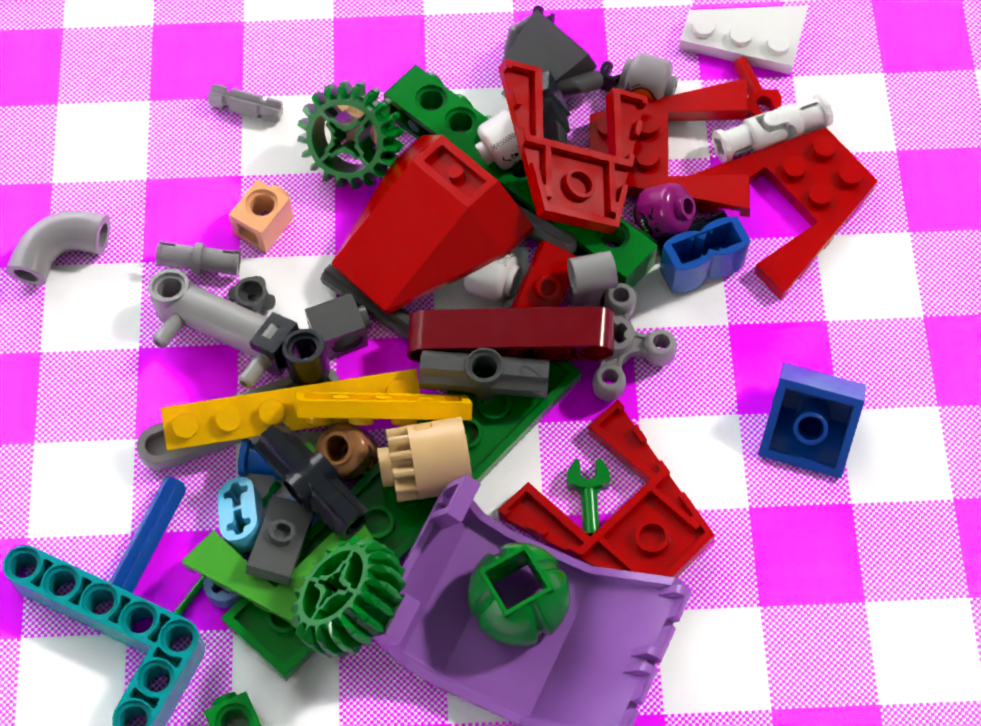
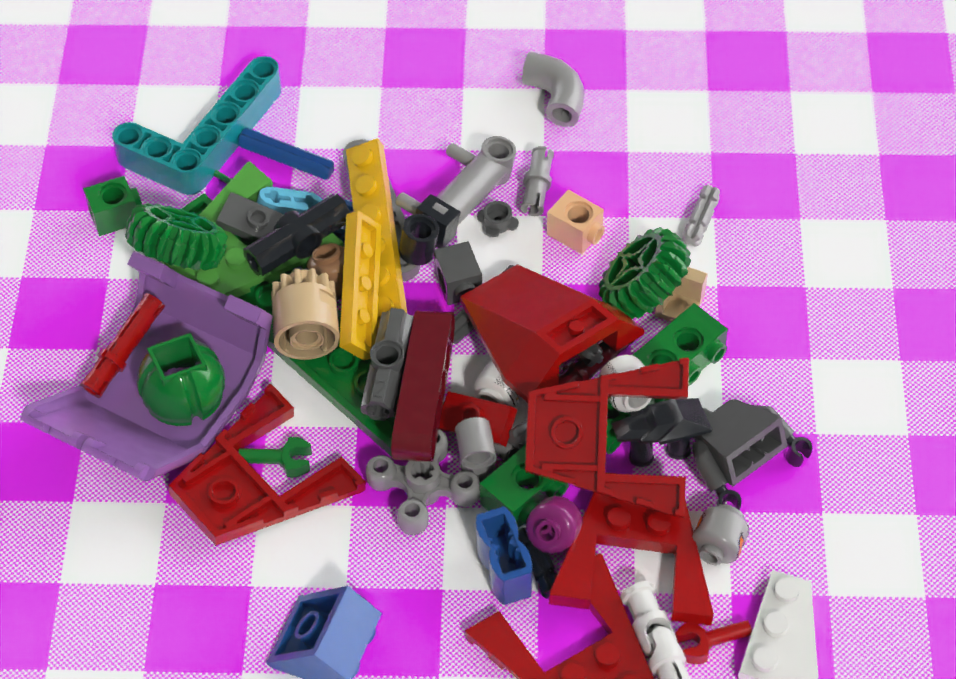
camera: 95 degrees right, 10 degrees down
(520, 695) = (118, 351): none -> red pin

